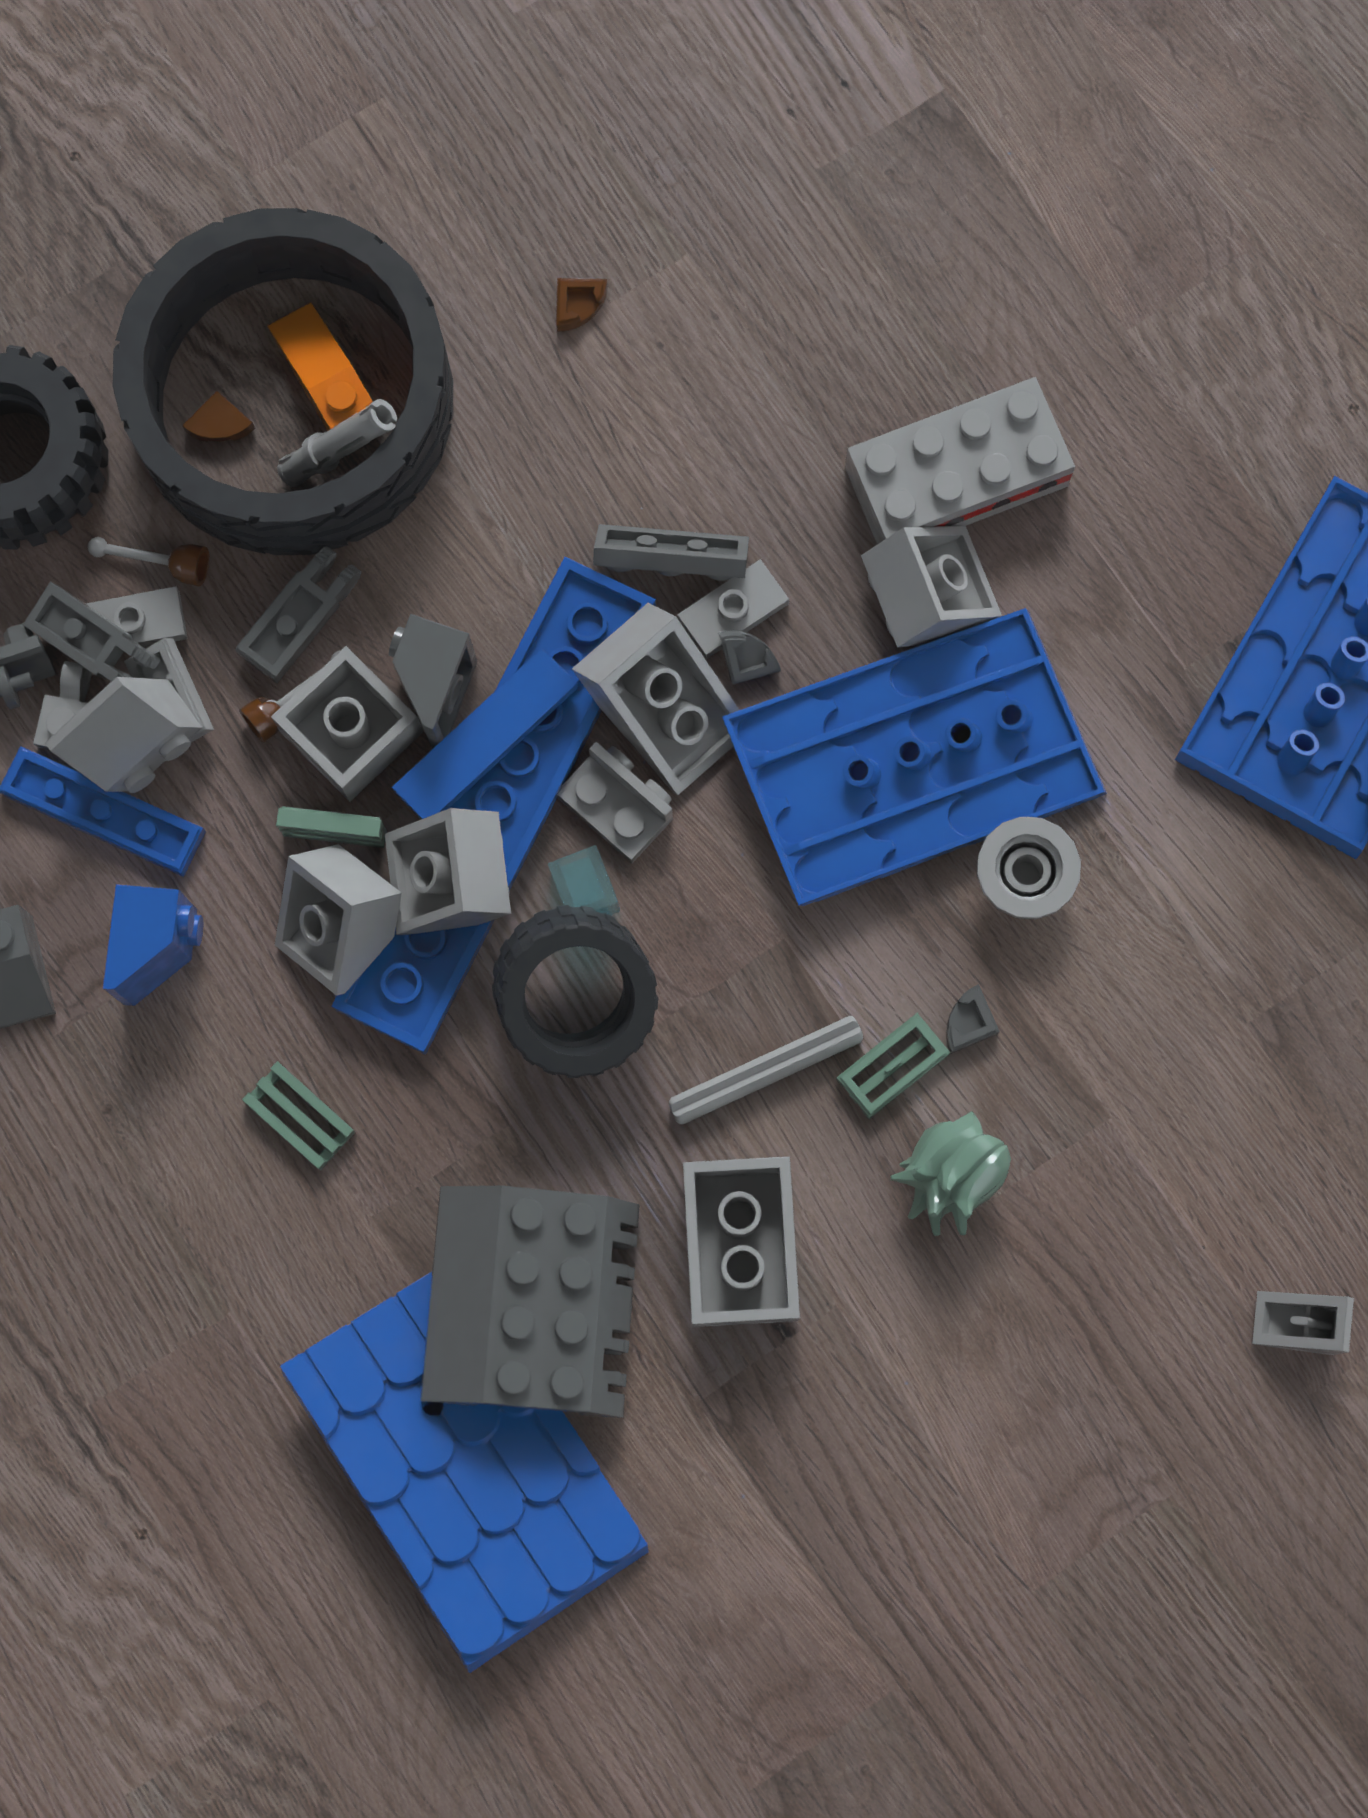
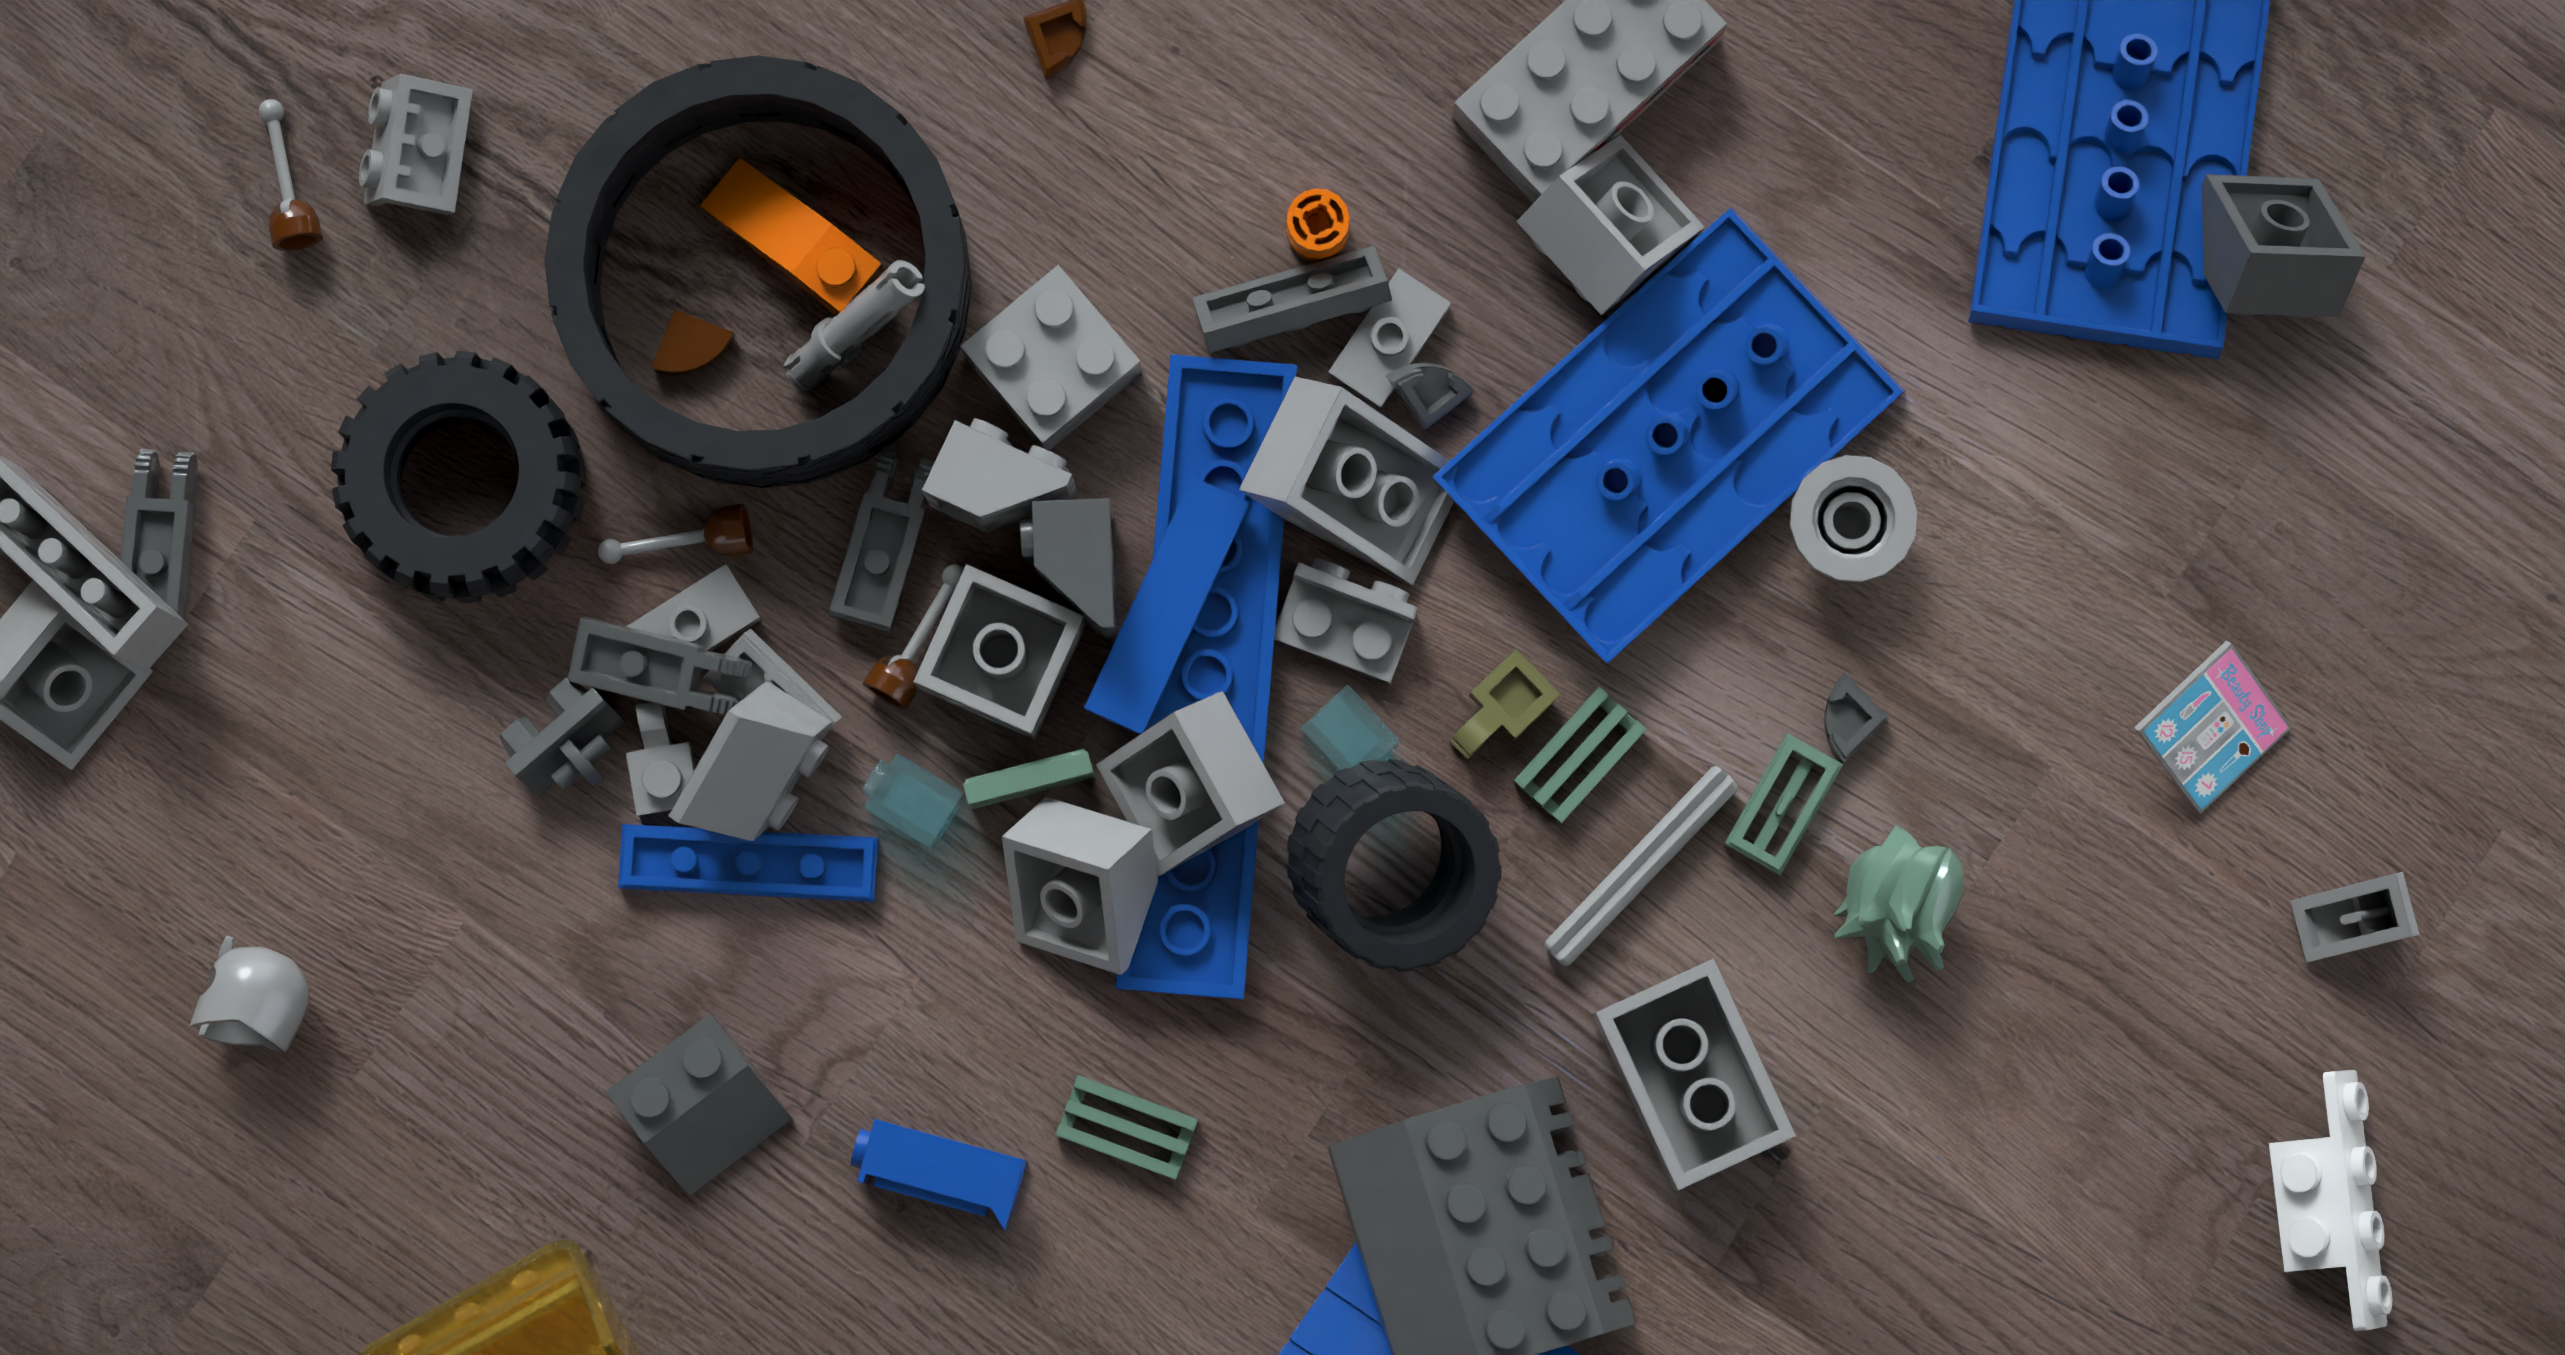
camera: 25 degrees left, 5 degrees up
(83, 205) = (416, 144): none -> light grey bracket
(144, 1092) = (939, 1170): none -> blue window
(148, 940) = (877, 992): blue slope -> none
(239, 810) = (912, 800): none -> clear light blue brick
(386, 589) = (991, 482): none -> light grey slope
(475, 527) = (1051, 358): none -> light grey brick
(712, 514) = (1314, 236): none -> orange wheel
(715, 906) = (1508, 700): none -> olive plate
(791, 950) = (1615, 716): none -> sand green tile
(1199, 1538) = (2328, 1202): none -> white bracket
(1246, 1132) = (2213, 727): none -> piece

